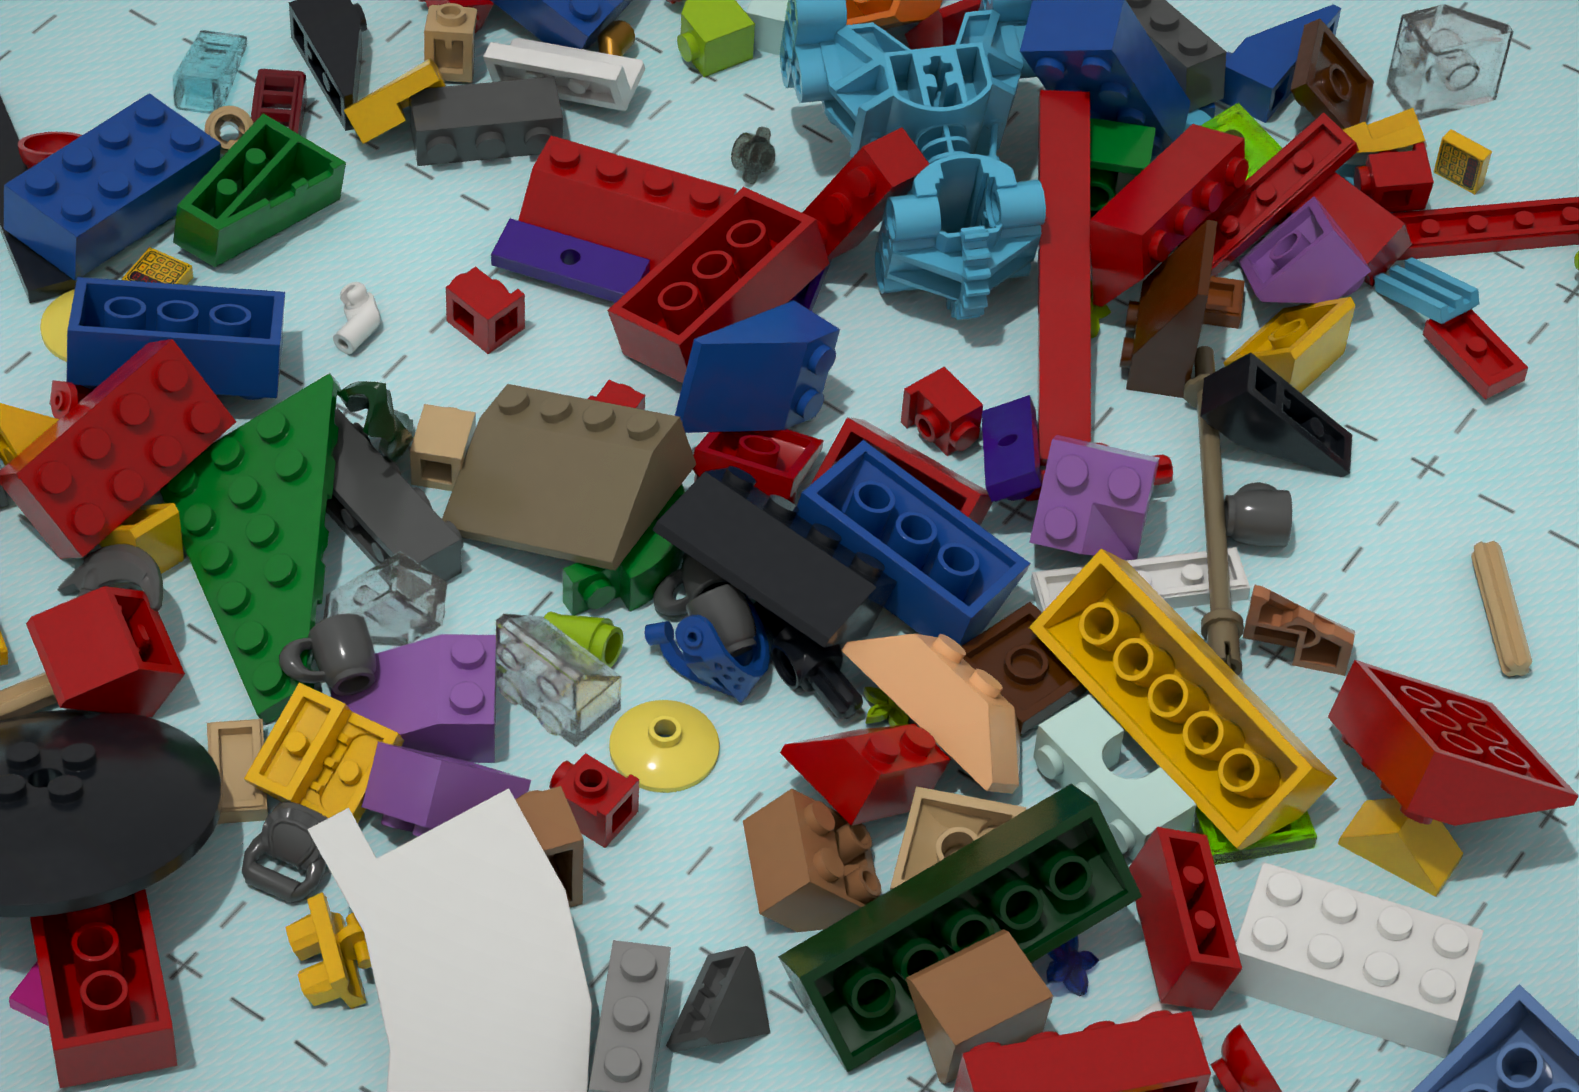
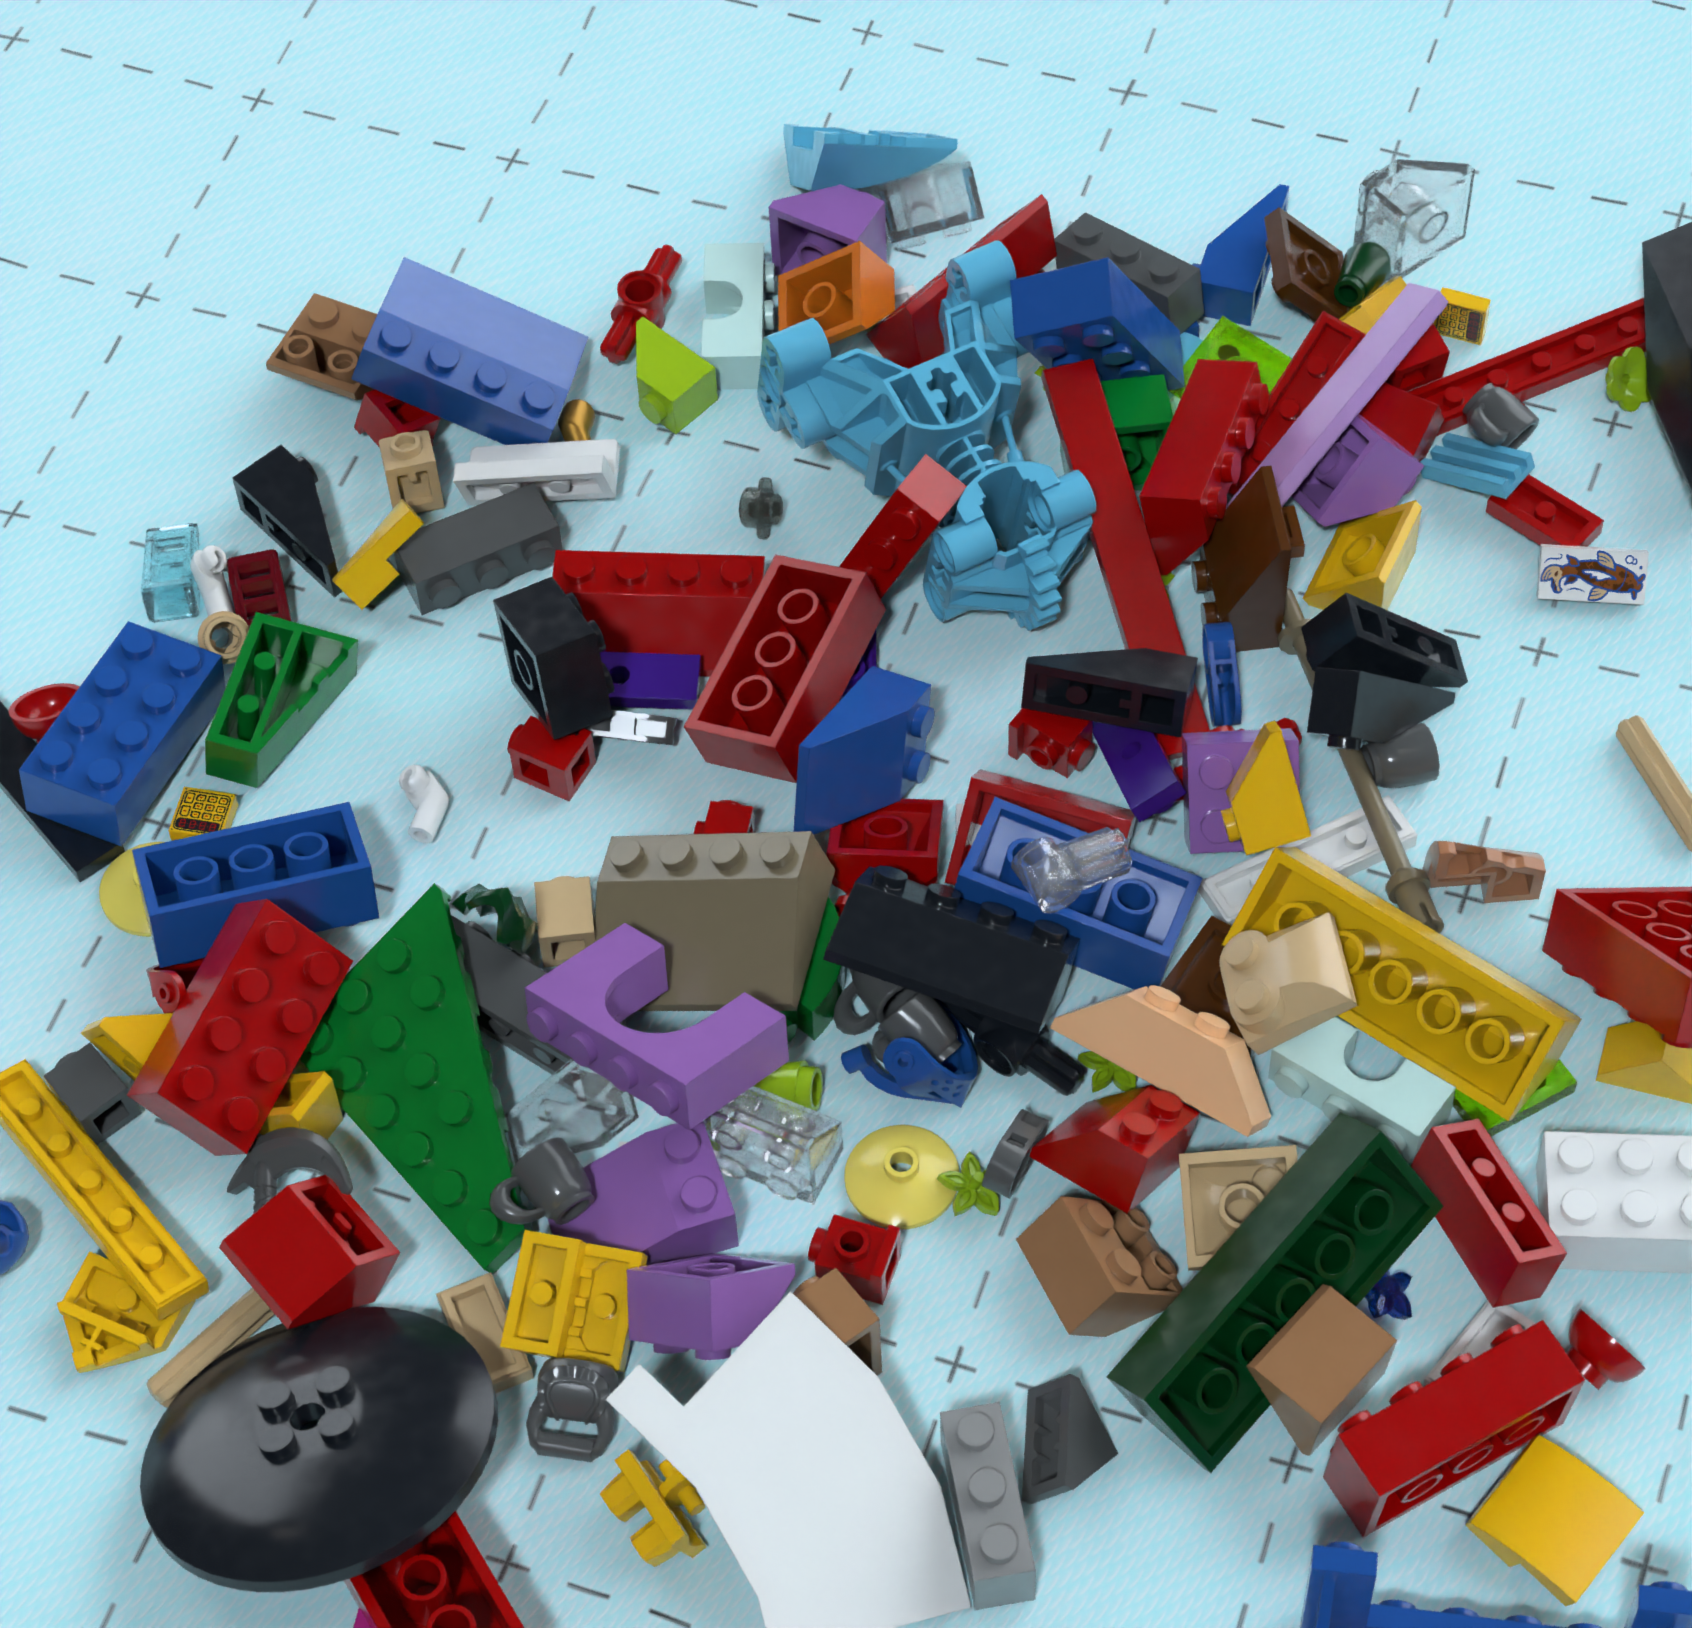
camera: 10 degrees left, 5 degrees up
(239, 80) = (208, 574): none -> white arm
(481, 584) = (675, 1072): none -> medium lavender arch
(511, 217) = (555, 657): none -> black brick
(559, 300) = (635, 728): none -> piece
(725, 770) = (970, 1188): none -> lime plant
(759, 751) = (1011, 1156): none -> dark grey piece
(893, 515) = (1060, 872): none -> clear piece
(1010, 380) = (1114, 687): none -> black slope
(1070, 667) = (1286, 981): none -> tan slope
(1107, 503) = (1265, 797): none -> yellow slope
(1119, 400) = (1221, 674): none -> blue piece
(1237, 458) = (1368, 706): none -> black slope
(1319, 190) = (1351, 387): none -> lavender tile
(1382, 98) = (1362, 272): none -> dark green cone
(1463, 254) = (1499, 417): none -> dark grey piece
(1499, 411) = (1592, 574): none -> tile

